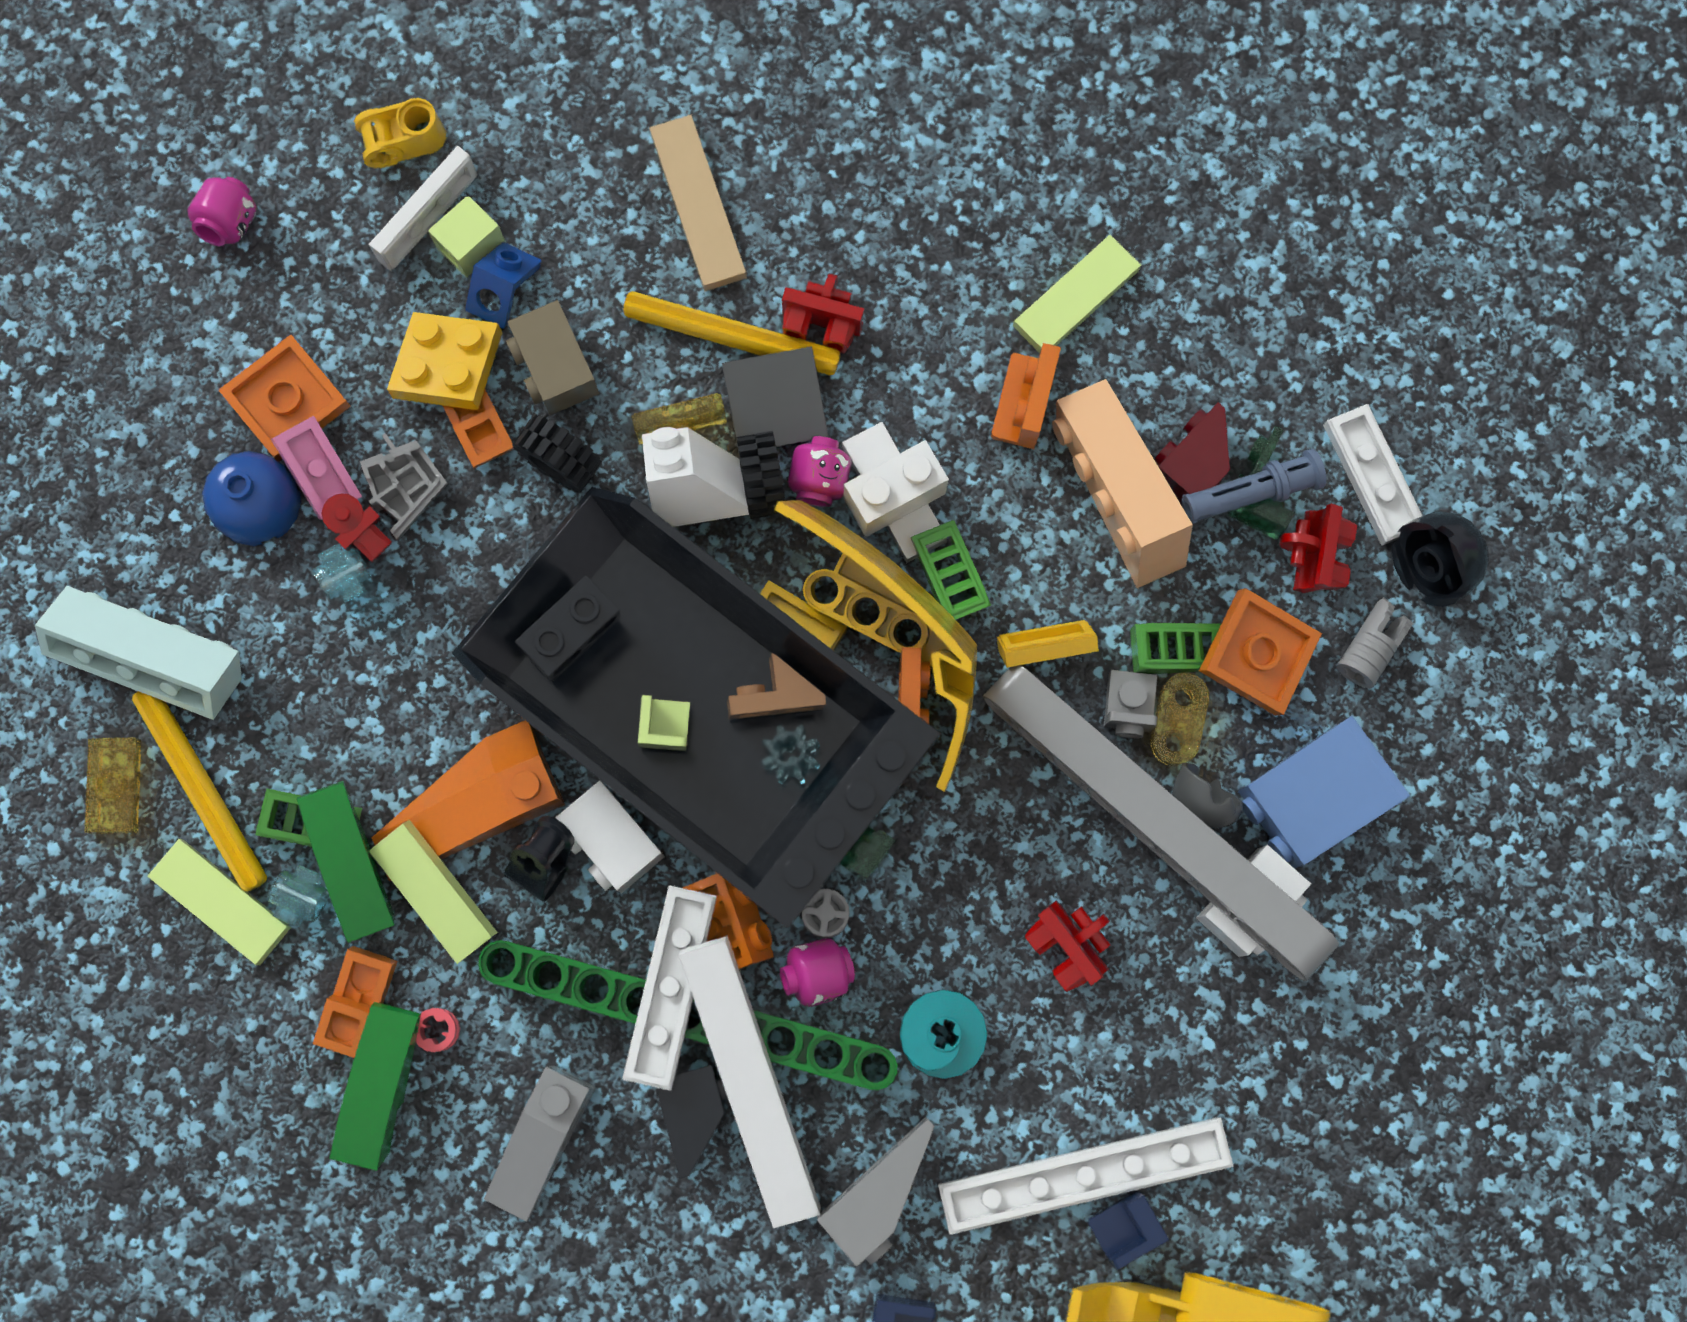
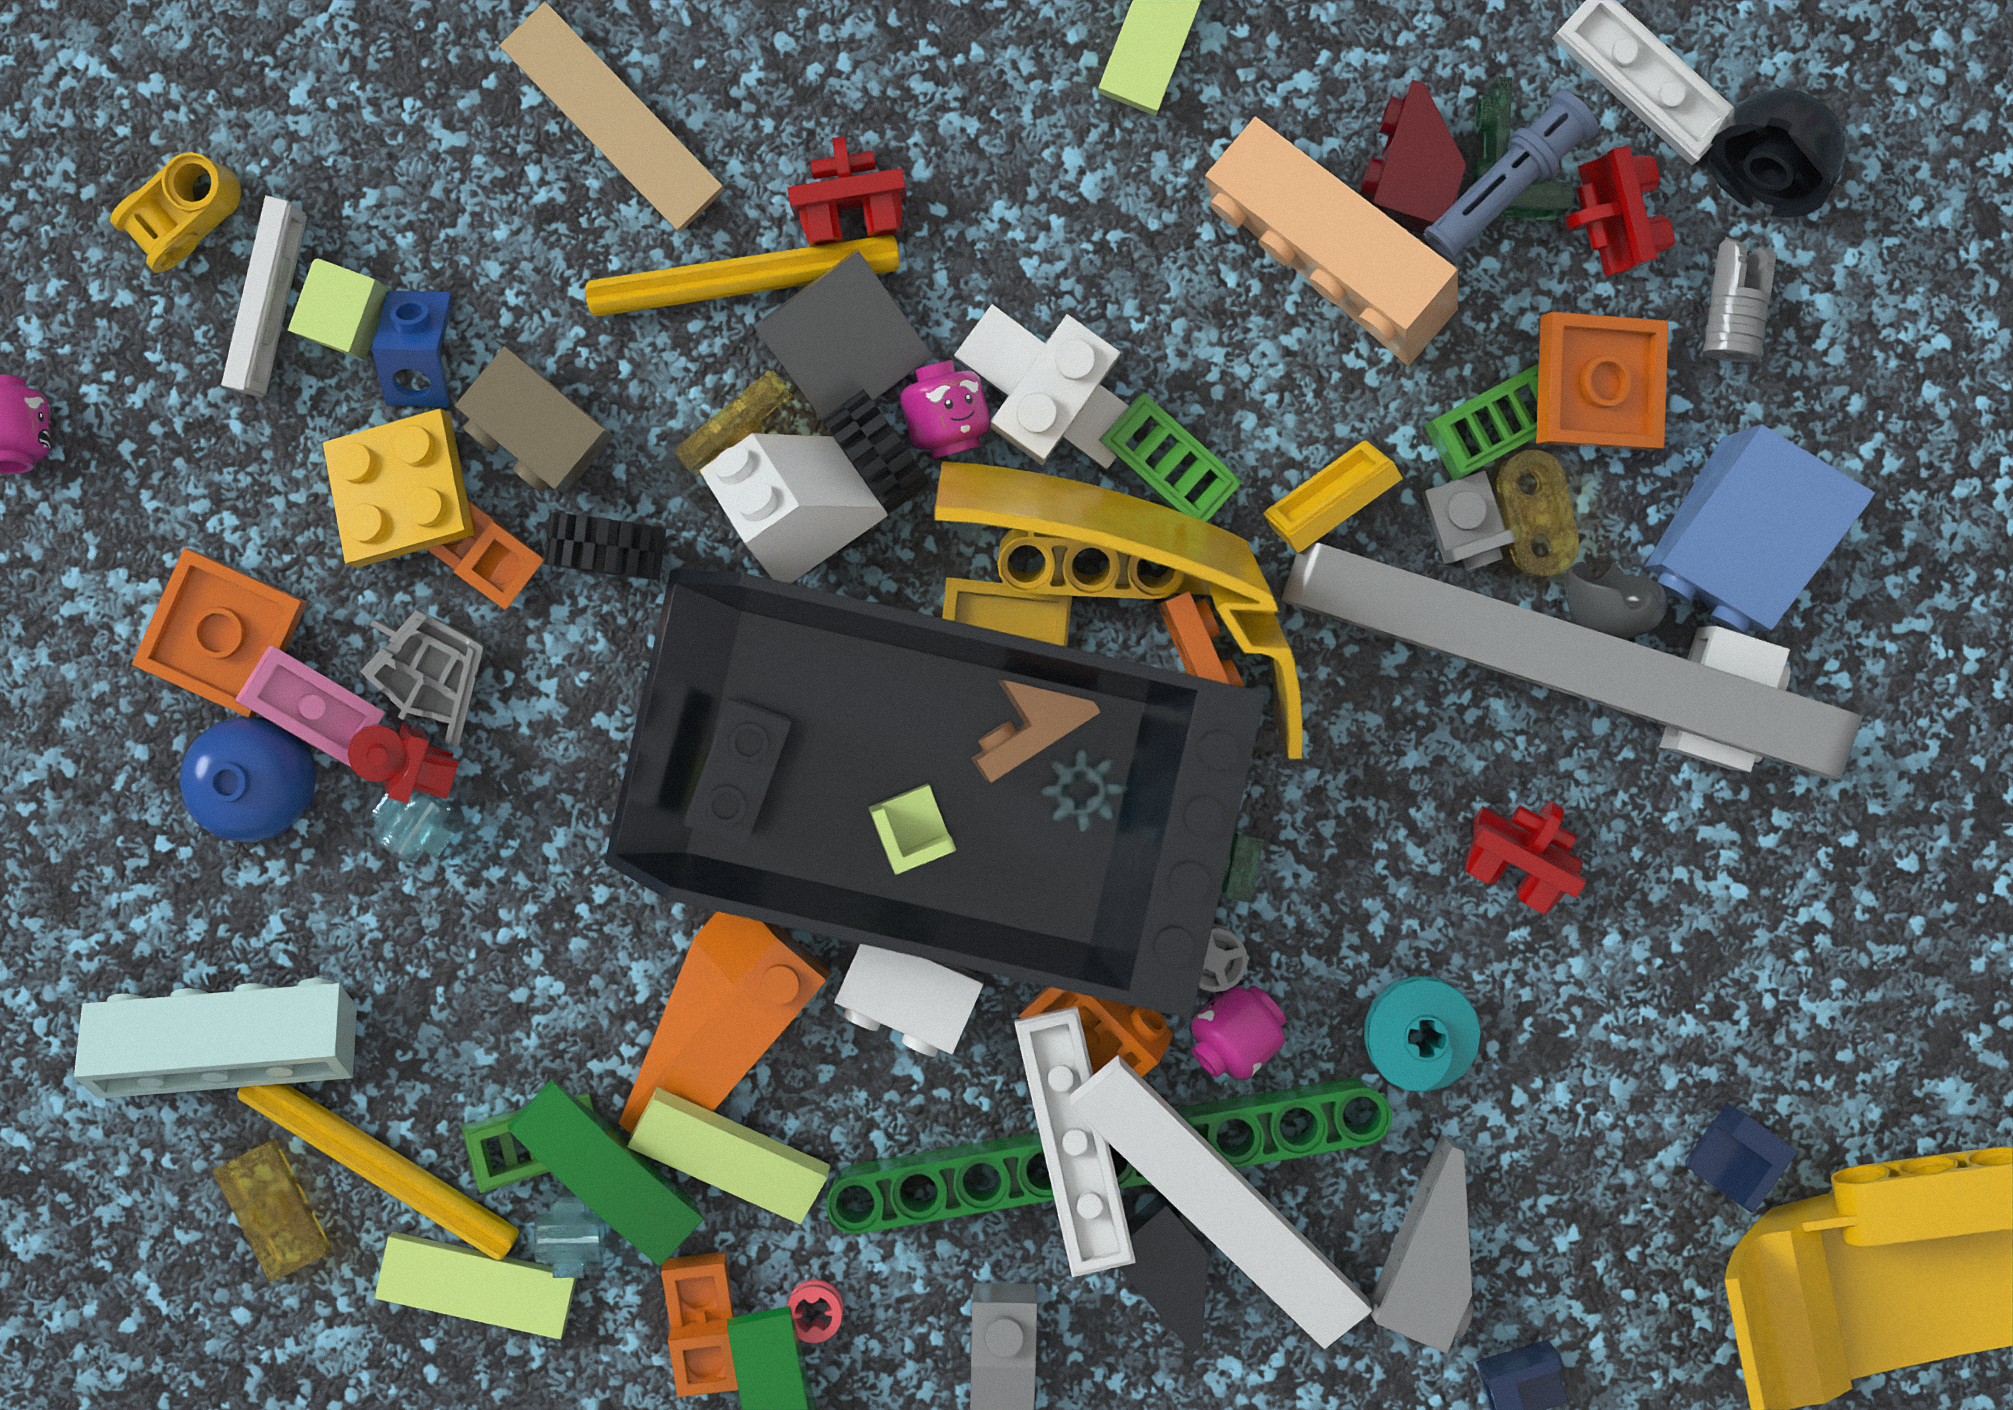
camera: 20 degrees left, 10 degrees up
(542, 859) = (840, 1057): black piece -> none
(1025, 397) = (1161, 185): orange bracket -> none
(1085, 1175) = (1661, 1114): white tile -> none

